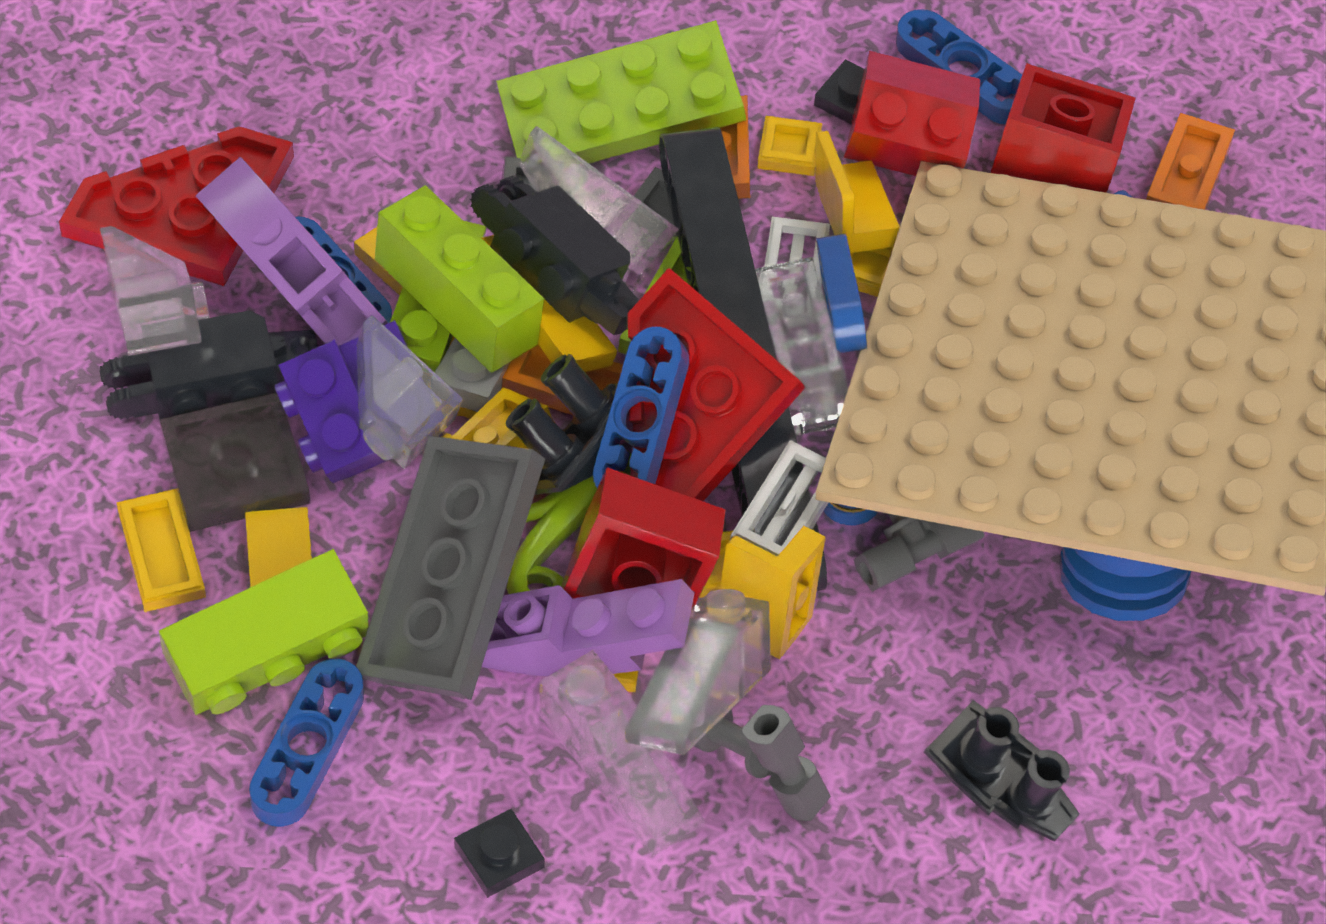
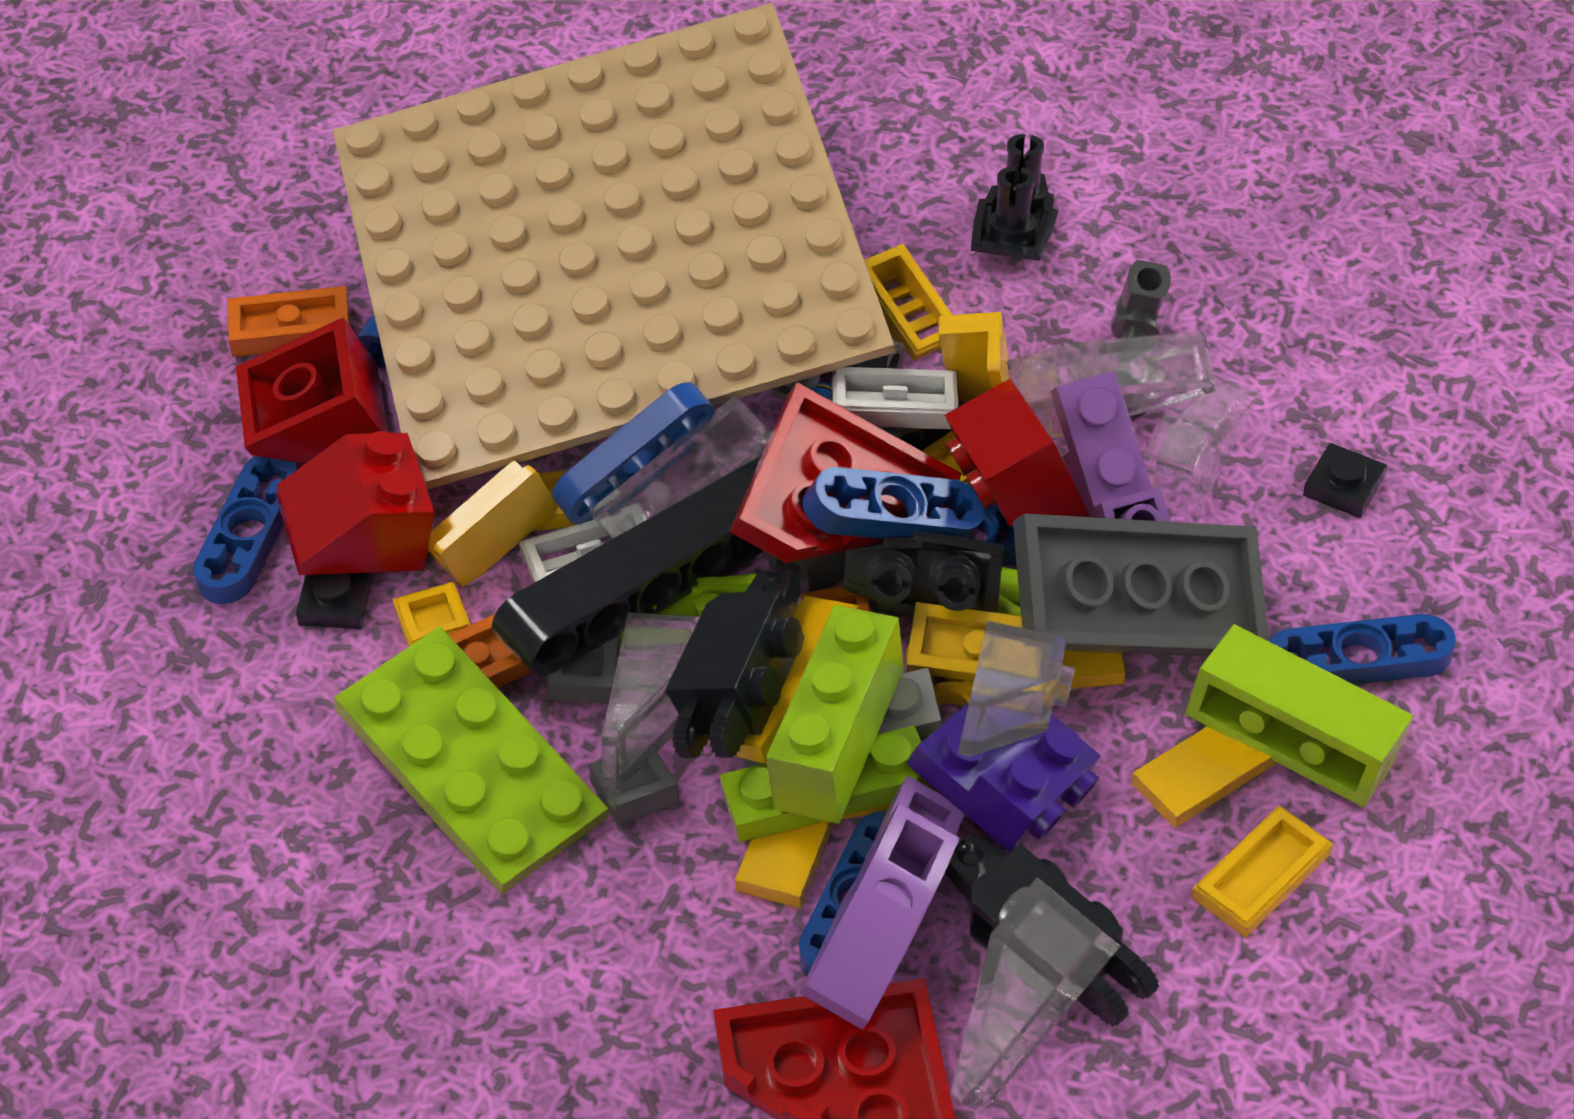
camera: 115 degrees left, 5 degrees down
(234, 461) = (1132, 853): clear smoke plate -> none
(957, 600) = (901, 266): none -> yellow slope

